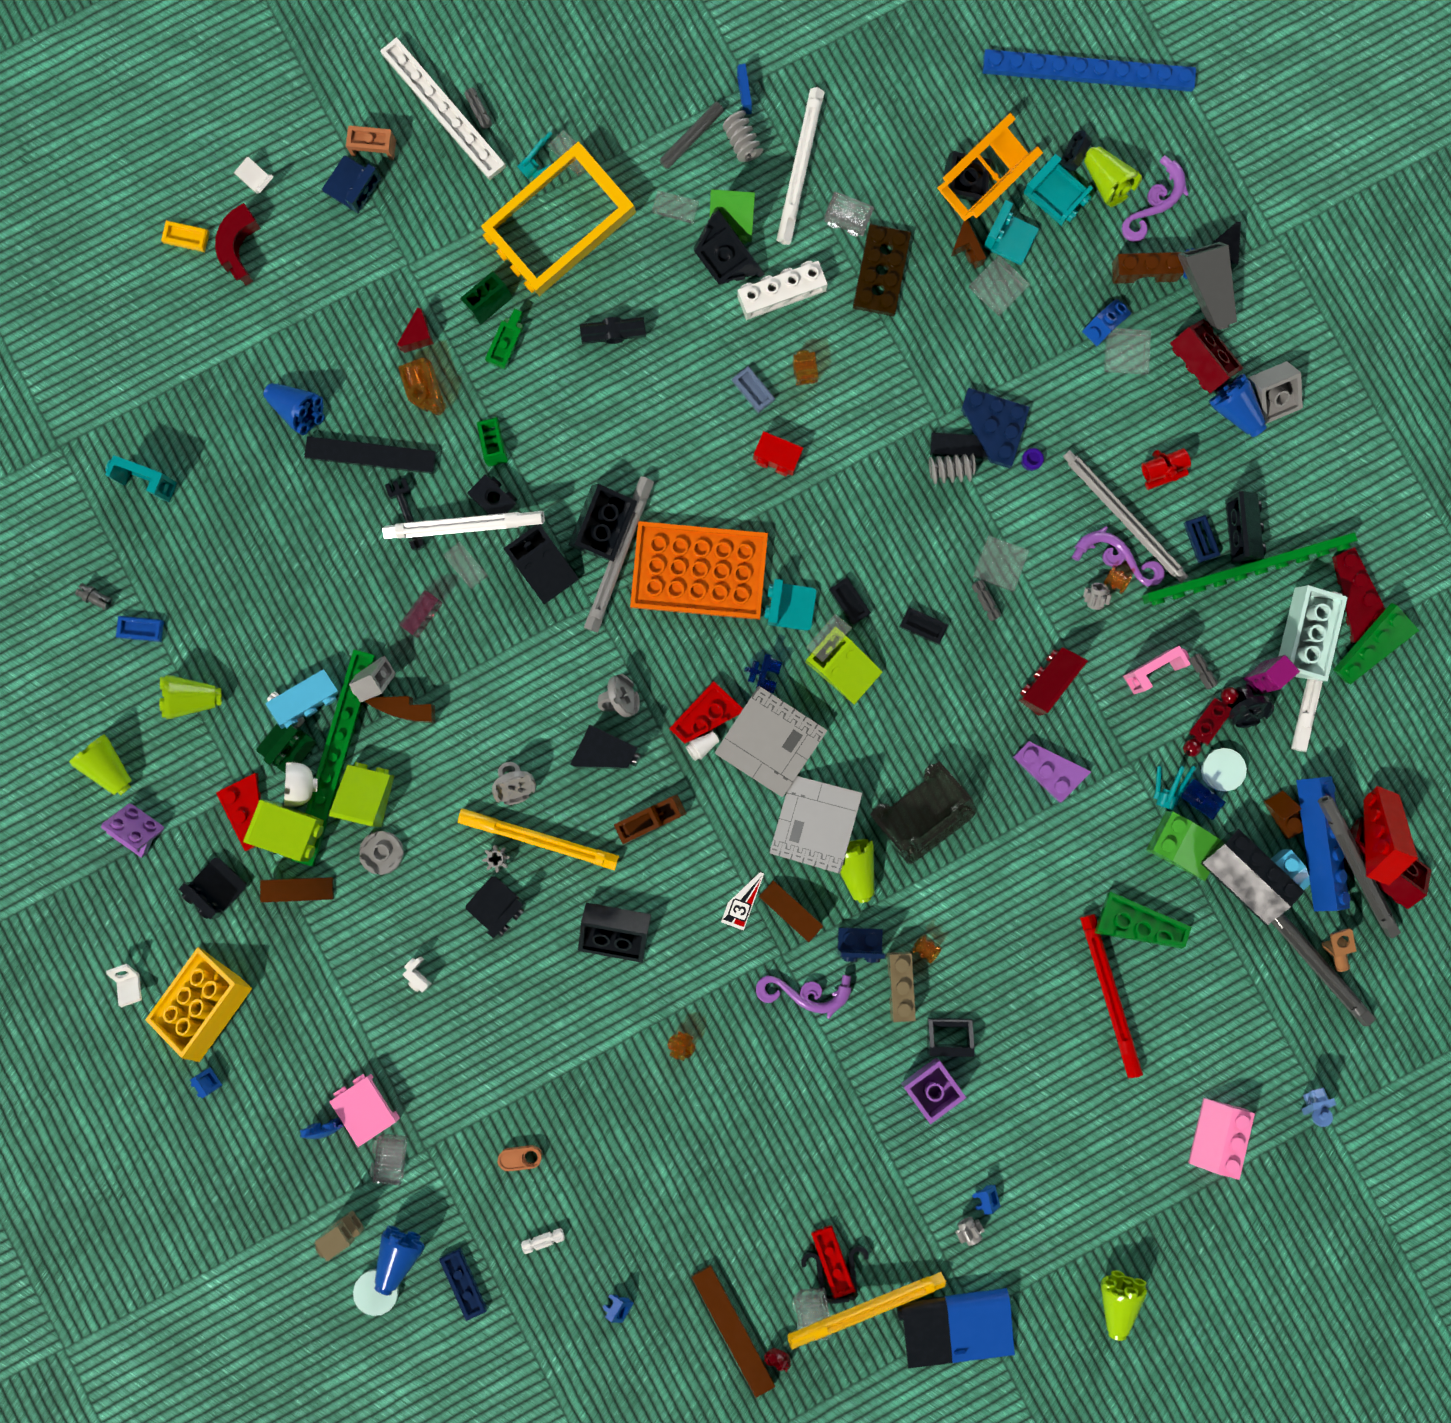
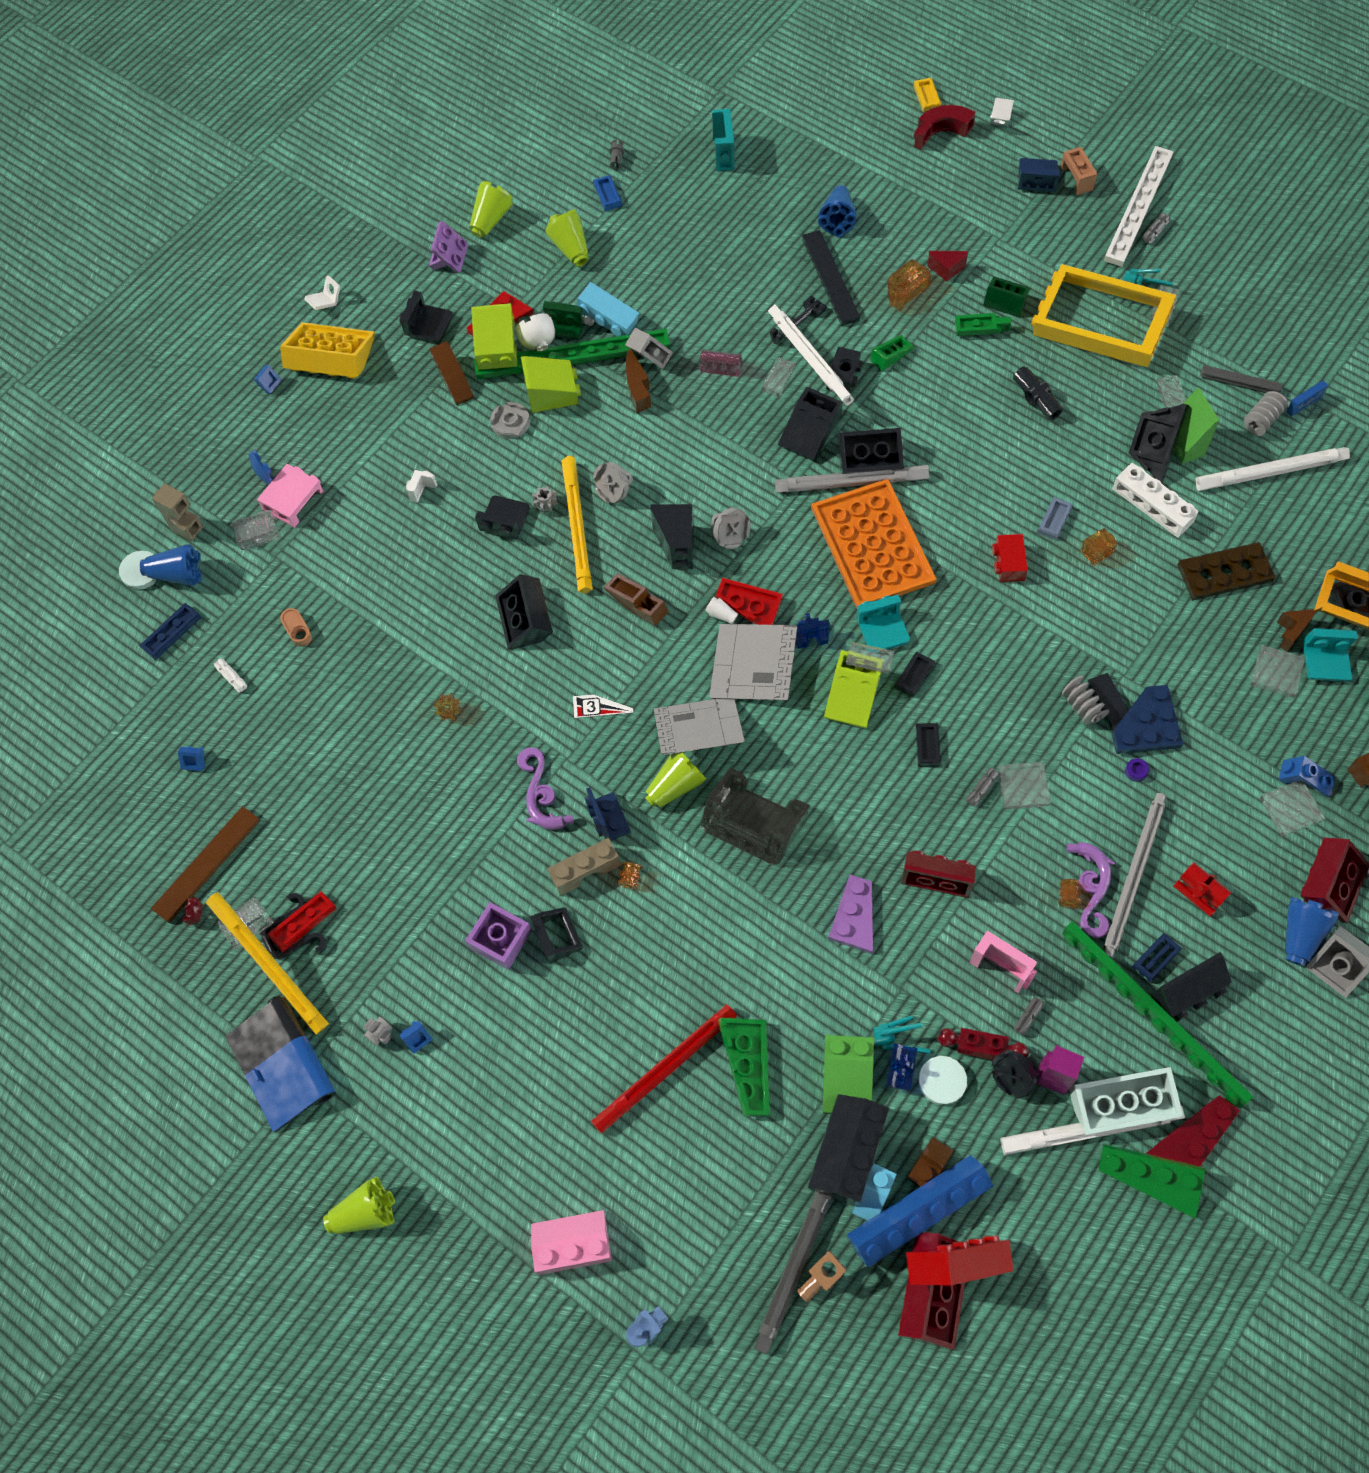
camera: 75 degrees right, 20 degrees down
(791, 911) = (608, 746): reddish brown slope -> none
(848, 214) = (1256, 521): clear brick -> none
(1097, 596) = (1043, 880): light grey gear -> none
(1358, 866) = (921, 1241): dark grey piece -> none

